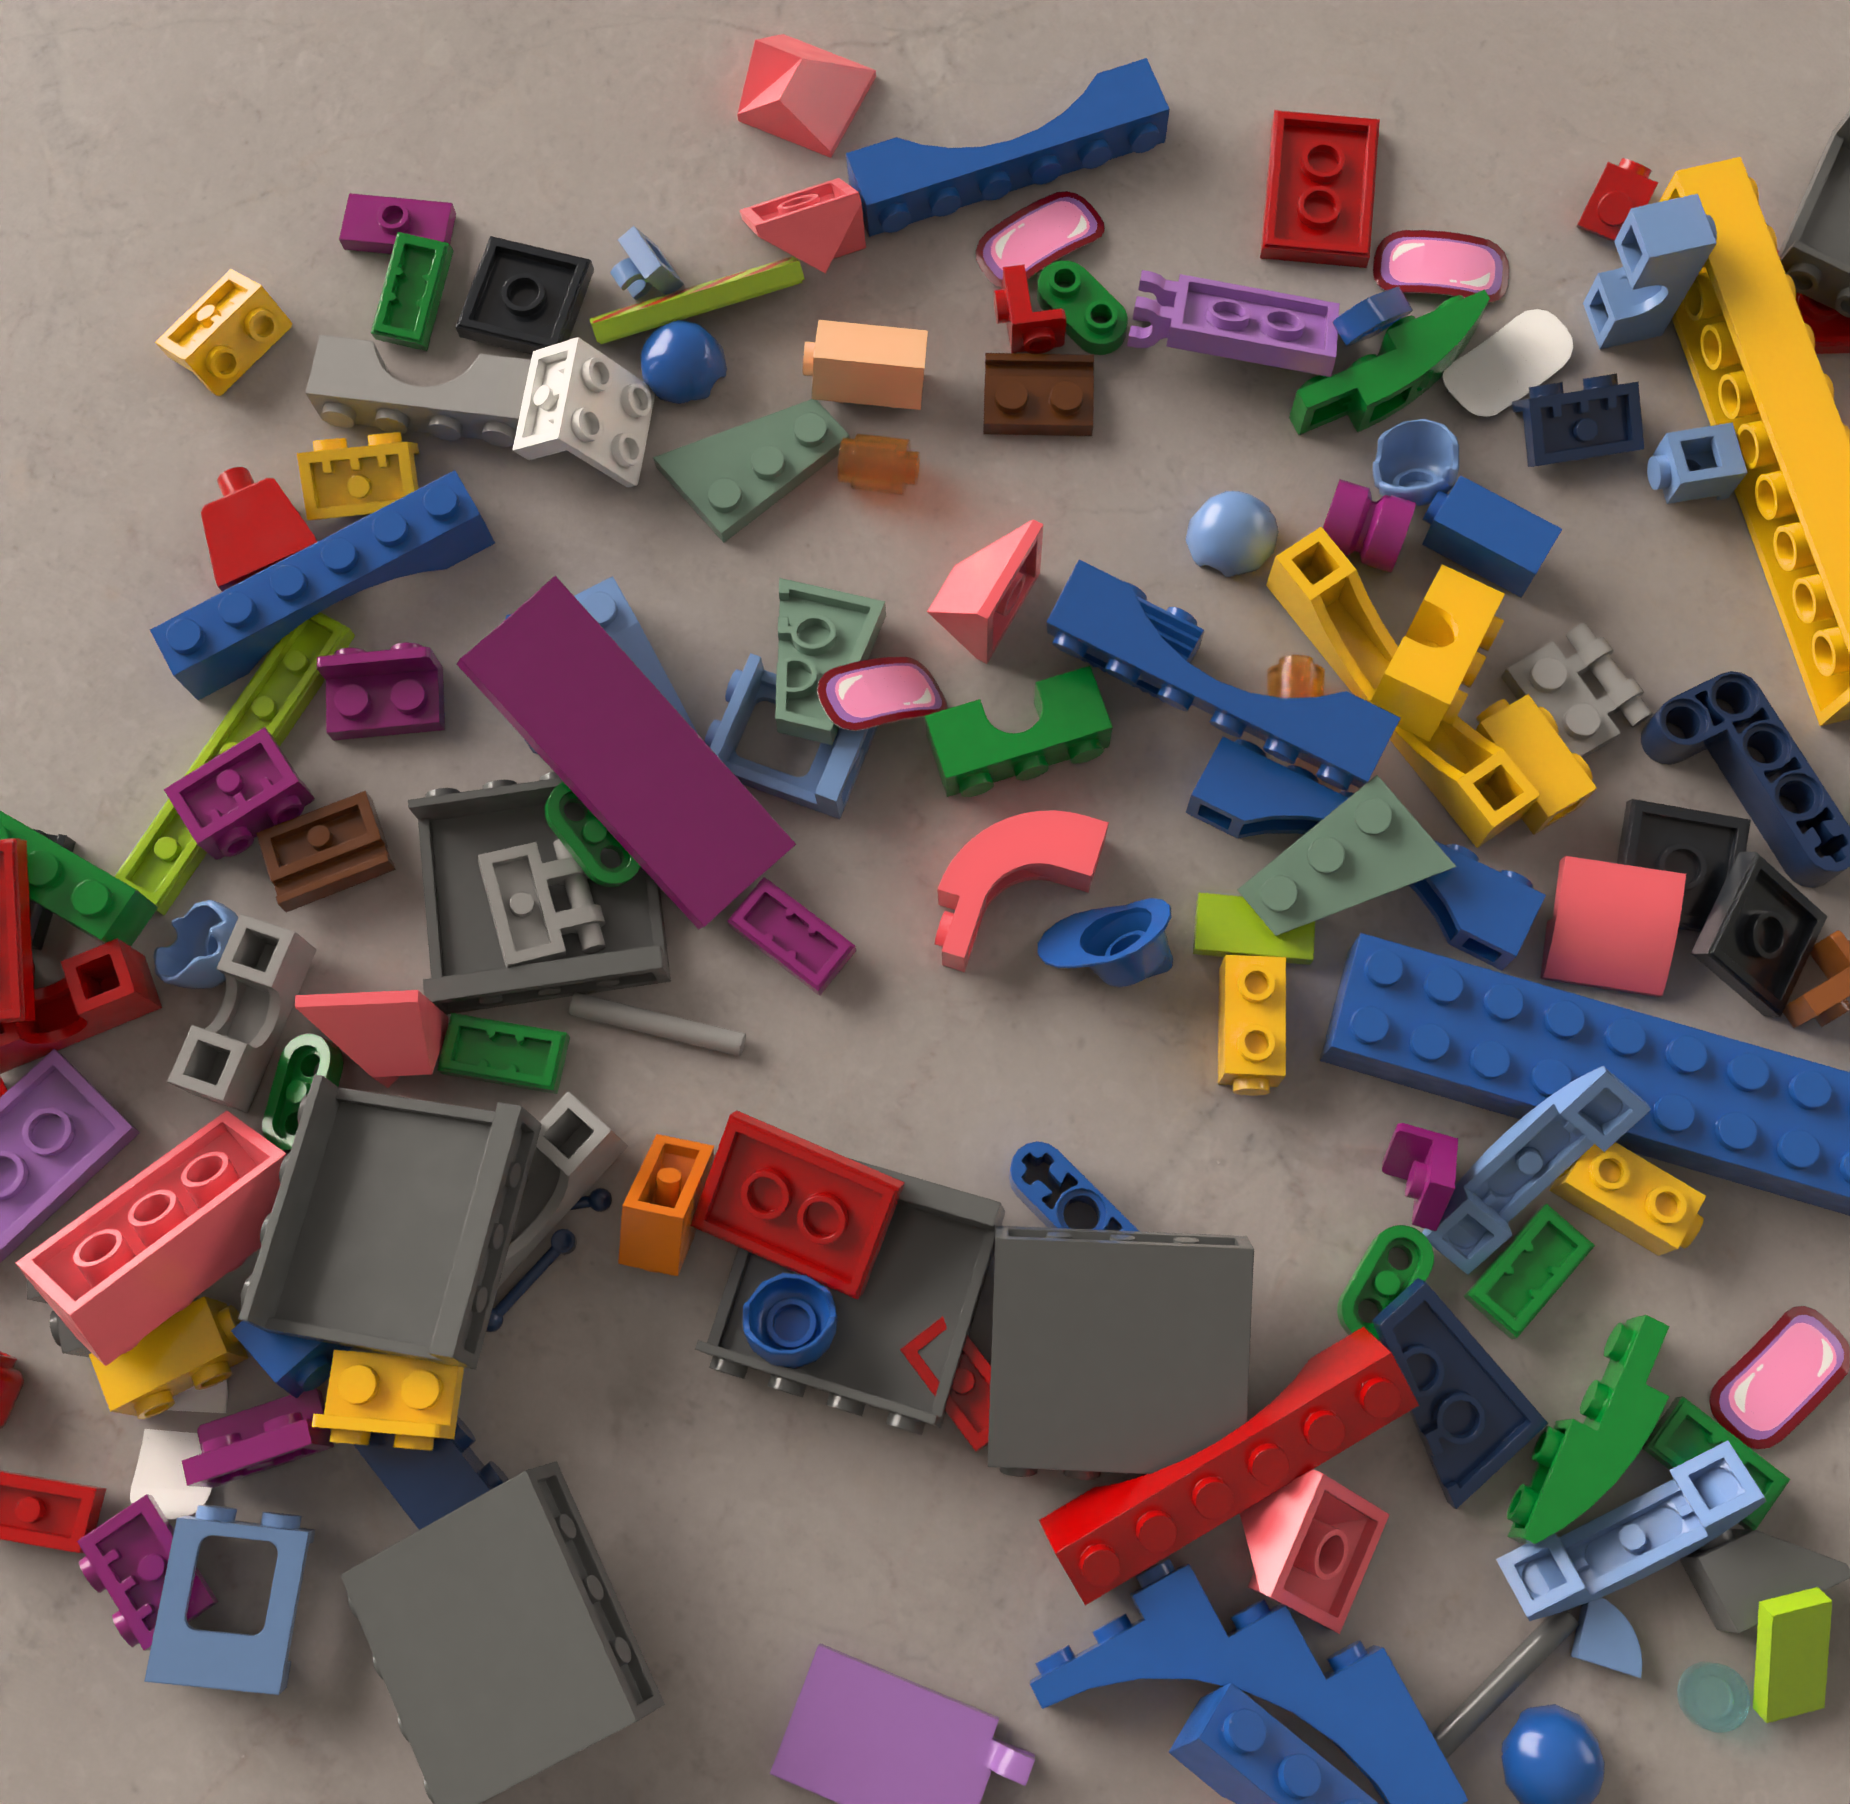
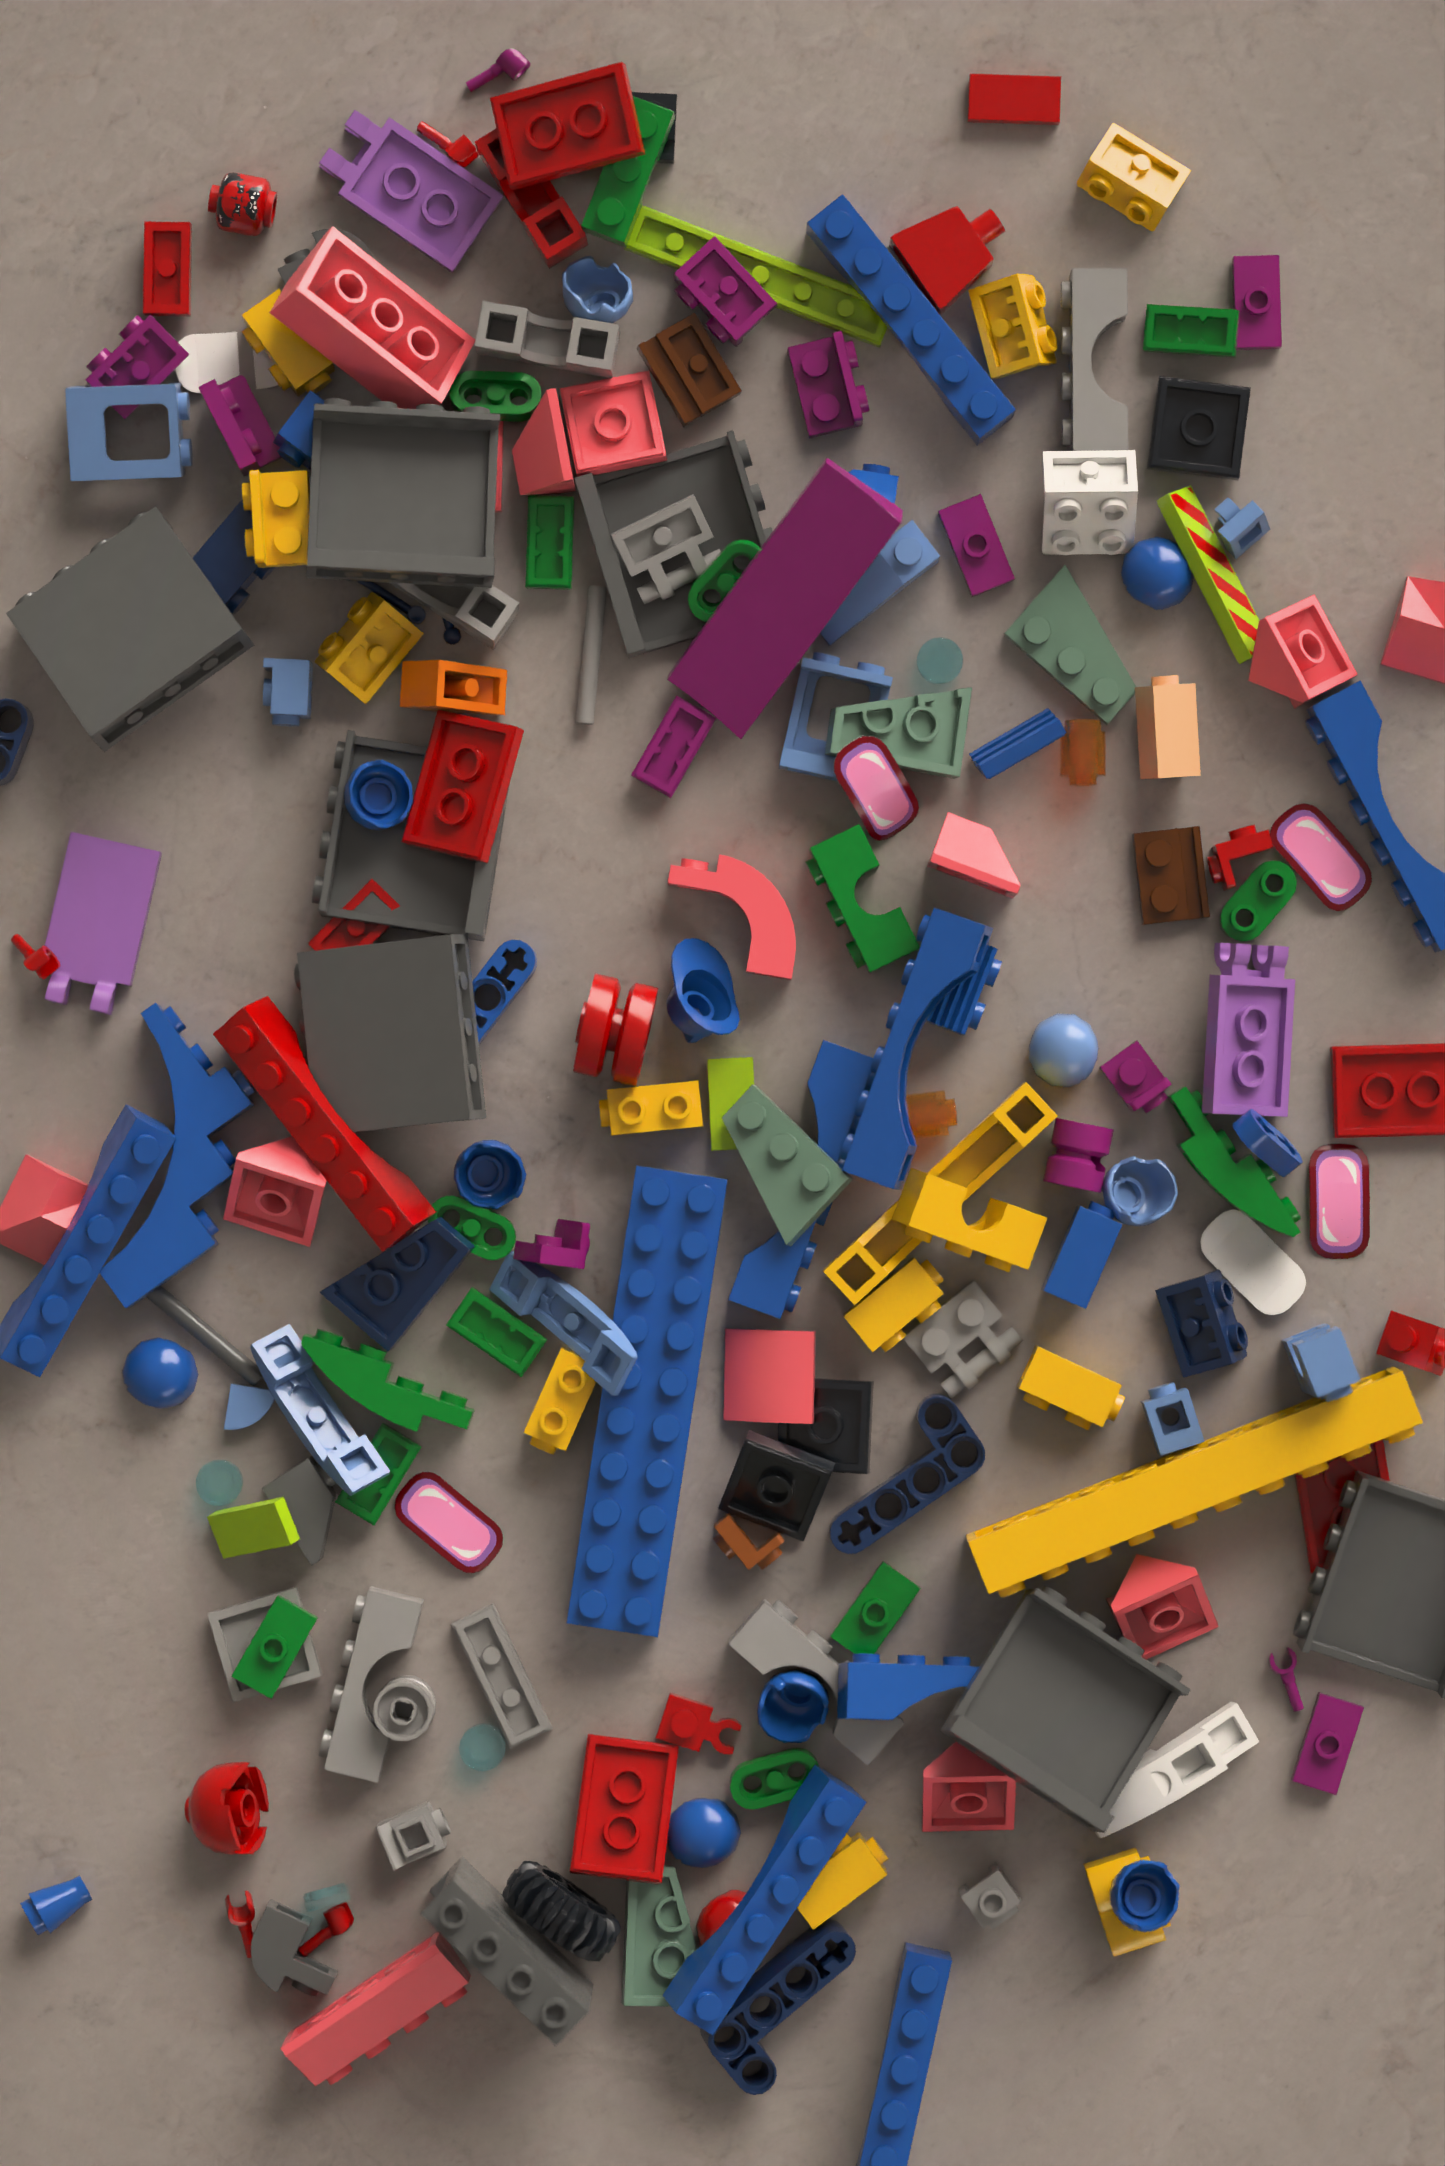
camera: 80 degrees right, 15 degrees up
(101, 447) = (1014, 99): none -> red tile
(373, 943) = (613, 424): none -> coral tile
(591, 1310) = (367, 646): none -> yellow bracket
(618, 550) = (976, 545): none -> magenta plate
(629, 1426) = (288, 690): none -> medium blue brick
(741, 613) = (939, 660): none -> clear light blue tile
(856, 533) = (1017, 744): none -> blue tile
(1148, 1047) = (614, 1029): none -> red wheel
(1277, 457) = (1136, 1078): none -> magenta bracket
(1318, 1247) = (489, 1174): none -> blue hair
(1649, 573) = (1076, 1389): none -> yellow brick

